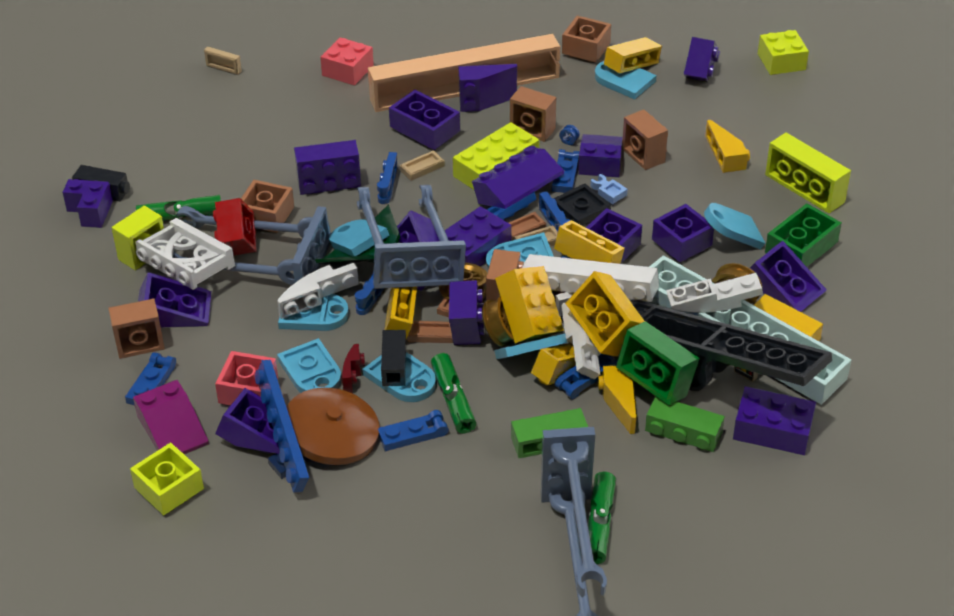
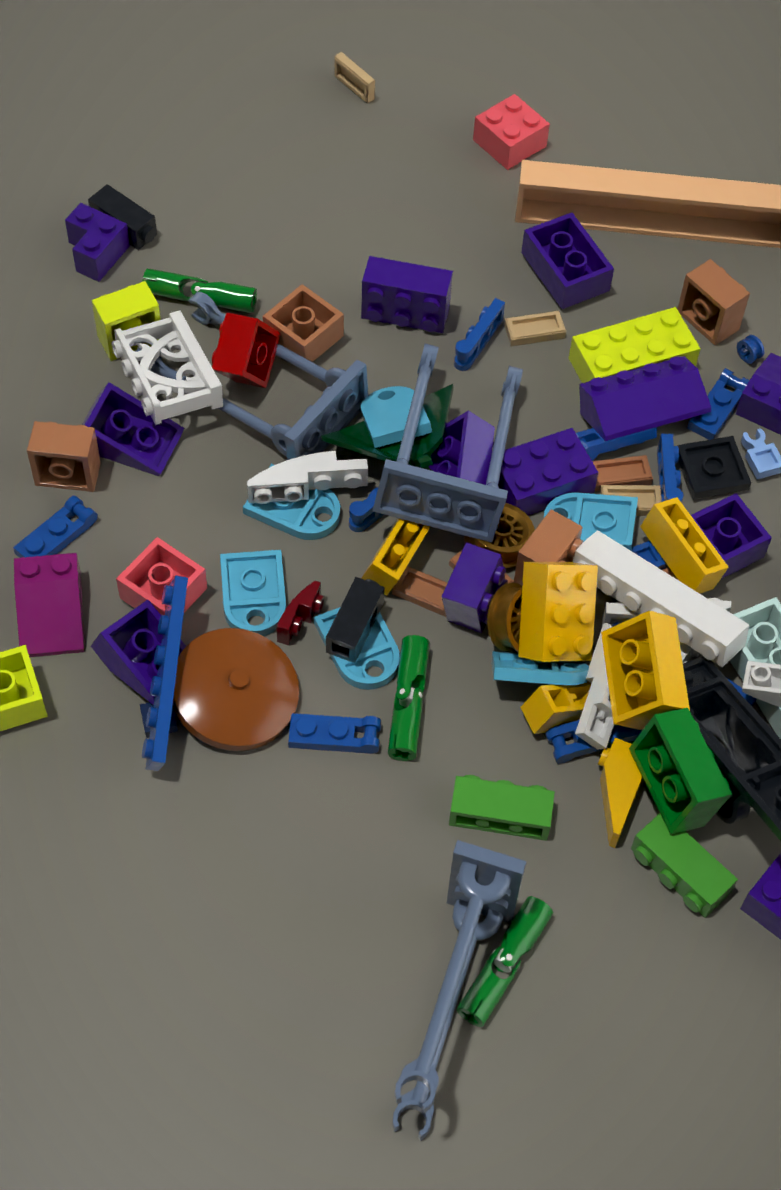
camera: 20 degrees right, 15 degrees up
(486, 85) = (671, 235): dark purple slope -> none

